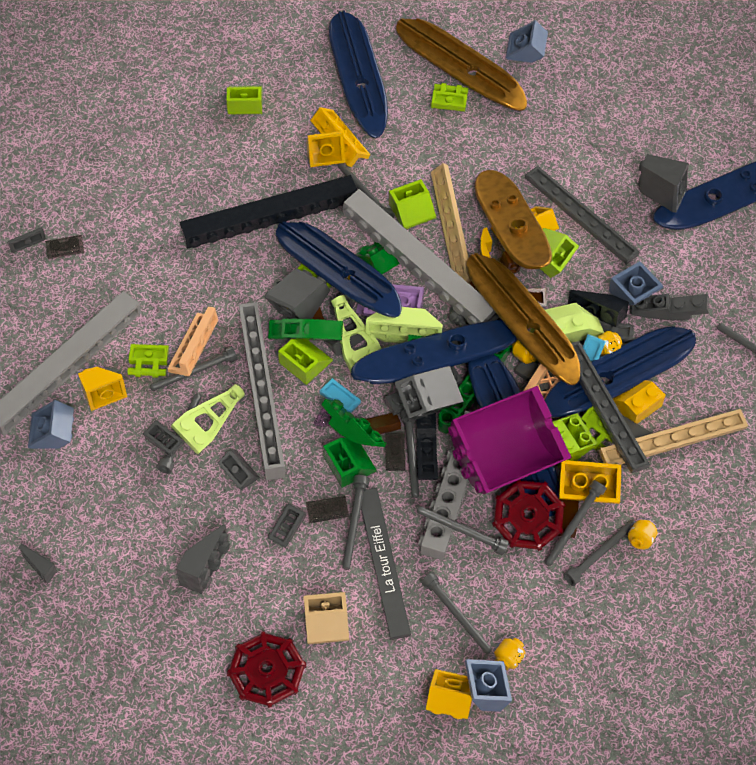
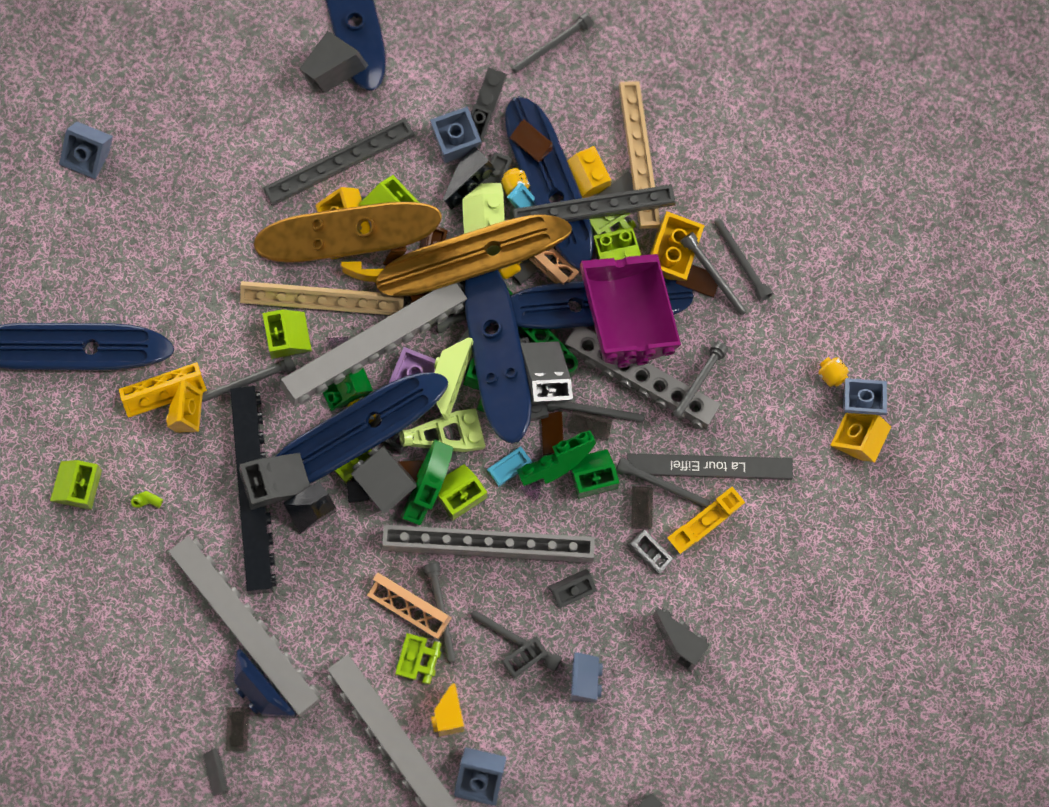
camera: 80 degrees left, 15 degrees up
(101, 250) = (259, 690): none -> dark blue wedge
(150, 232) = (244, 626): none -> light grey brick
(152, 488) = (585, 678): none -> sand blue slope
(193, 433) = (519, 628): yellowish green plate -> none
(245, 145) = (145, 498): none -> lime arm
(262, 251) = (310, 507): none -> black slope
(263, 680) = (795, 613): dark red plate -> none
(276, 215) = (273, 479): none -> dark grey slope
(326, 567) = (706, 520): none -> yellow slope
(326, 618) = (763, 533): tan slope -> none
(427, 448) = (603, 396): black slope -> none
(431, 582) = (743, 425): dark grey piece -> none
(449, 97) = (144, 256): lime plate -> none
(459, 59) = (84, 233): pearl gold piece -> none
(540, 516) = (705, 313): dark red plate -> none
(642, 534) = (735, 215): yellow head -> none
(651, 346) = (531, 141): none -> reddish brown slope

